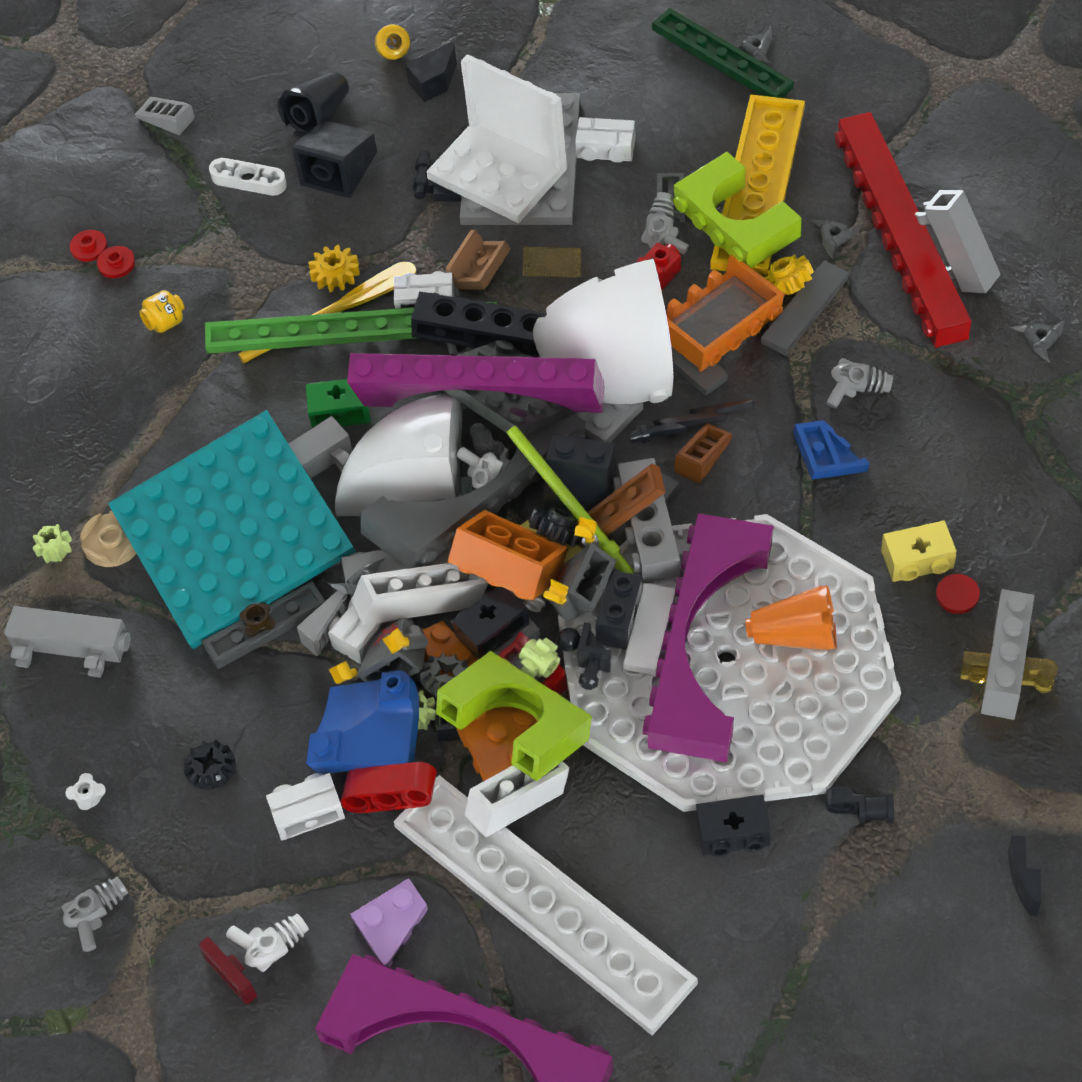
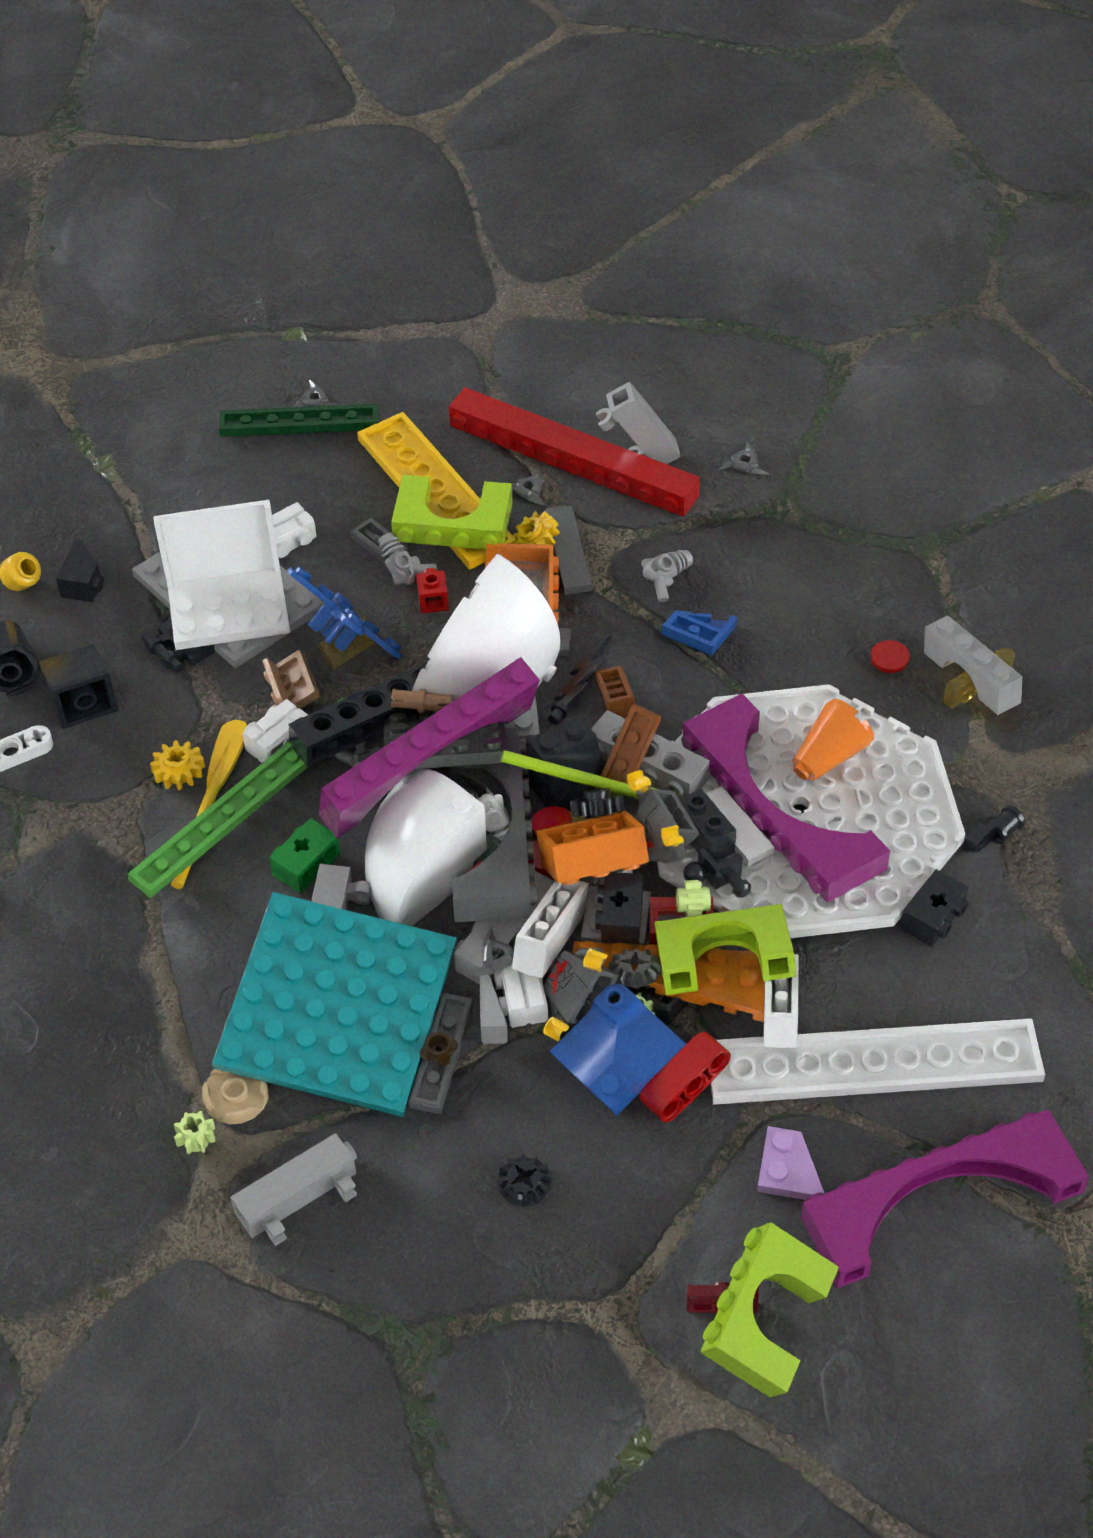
camera: 50 degrees left, 5 degrees down
(89, 799) = (453, 1290): white plate -> none
(89, 908) = (565, 1353): light grey piece -> none
(162, 311) = (69, 896): yellow head -> none
(184, 1001) = (734, 1336): none -> lime arch
(268, 945) = (727, 1250): white piece -> none
(305, 805) = (636, 1143): white brick -> none
(516, 510) = (549, 818): none -> red piece
(525, 342) = (419, 700): none -> medium nougat pin
(548, 236) = (341, 609): none -> blue piece
(918, 551) = (837, 648): light yellow brick -> none

